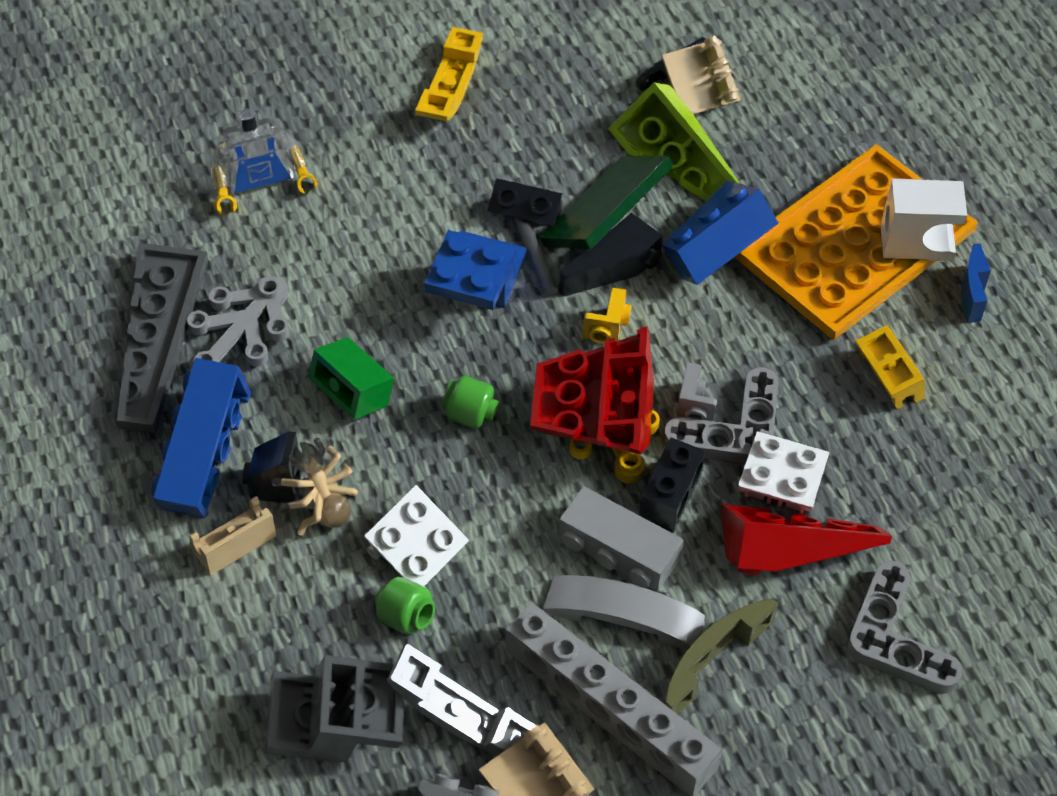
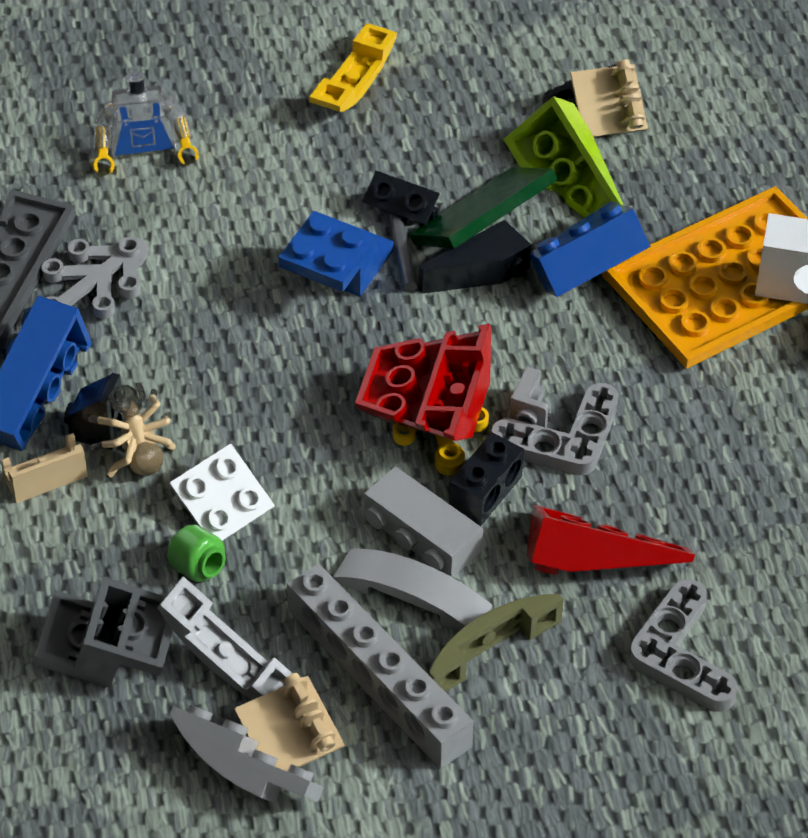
camera: 10 degrees right, 5 degrees down
(351, 378) = (190, 338): green brick -> none
(470, 402) = (302, 376): bright green head -> none
(604, 327) = (464, 320): yellow bracket -> none
(783, 472) = (600, 482): white hinge -> none
(892, 365) = (736, 398): yellow hinge -> none

